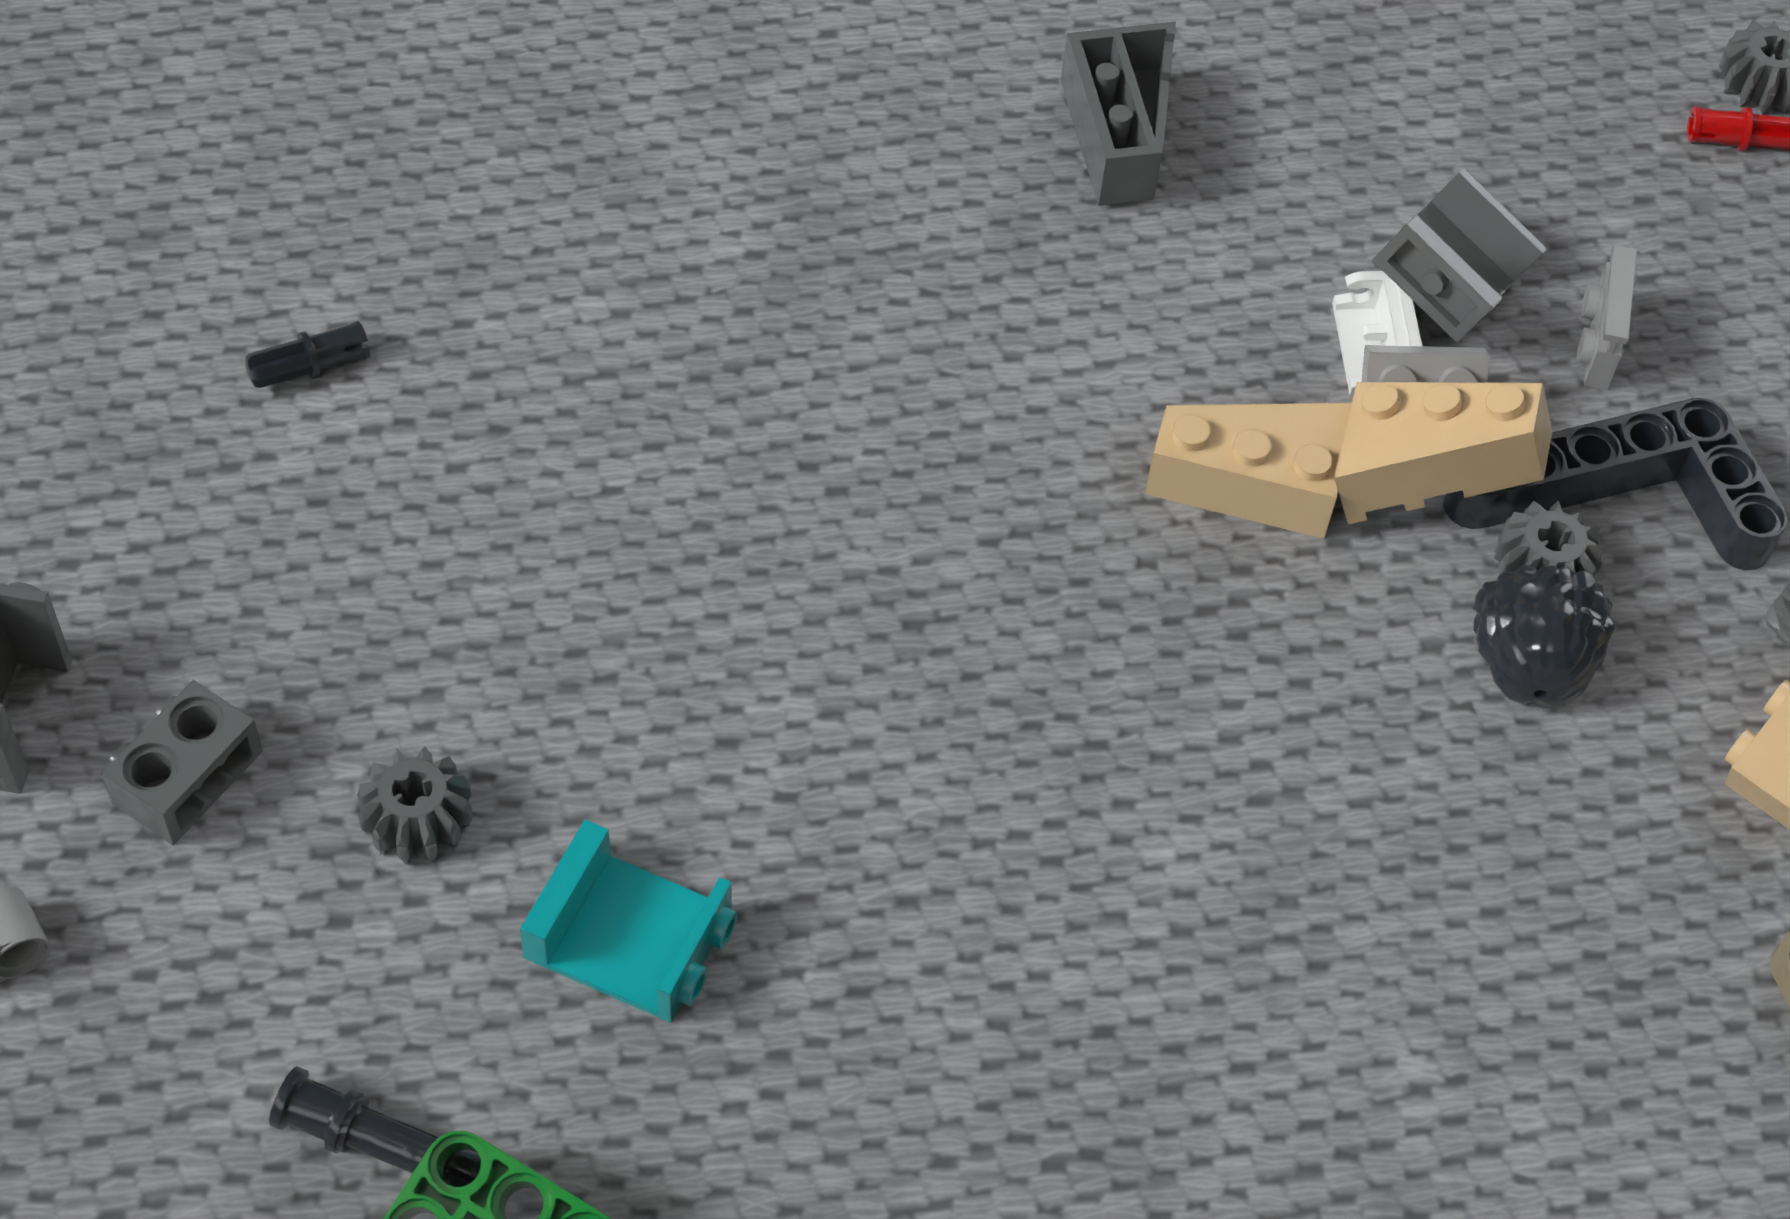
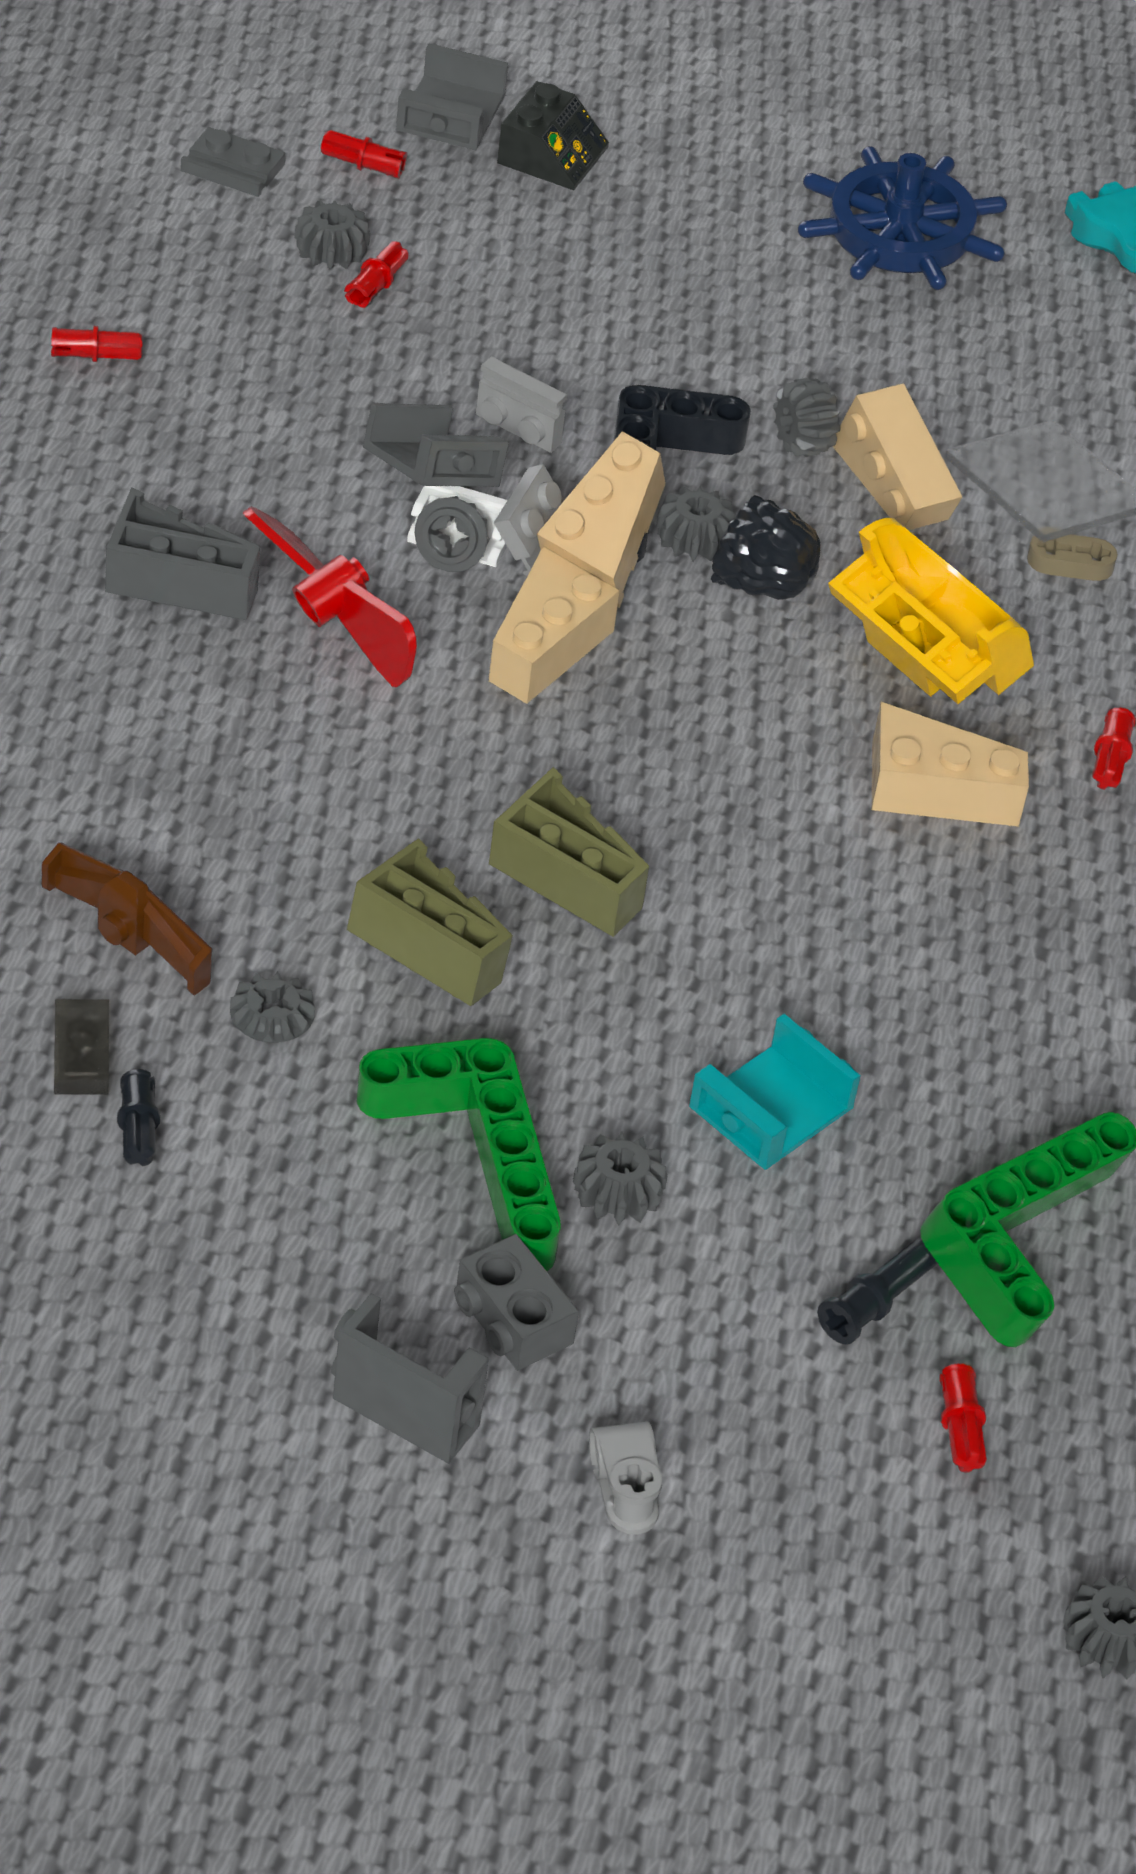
camera: 70 degrees left, 10 degrees down
(384, 277) = (81, 1047): none -> clear smoke plate
(415, 662) = (487, 1084): none -> green beam
(545, 431) = (276, 1023): none -> dark grey gear
(572, 248) = (129, 912): none -> reddish brown plate
(704, 497) = (430, 925): none -> olive wedge
(888, 591) = (568, 856): none -> olive wedge
(1220, 200) = (341, 592): none -> red piece
(1279, 943) = (945, 771): none -> tan wedge
(1340, 324) = (436, 546): none -> dark grey gear
(1474, 1143) = (1113, 747): none -> red axle
(1526, 870) = (930, 616): none -> yellow piece

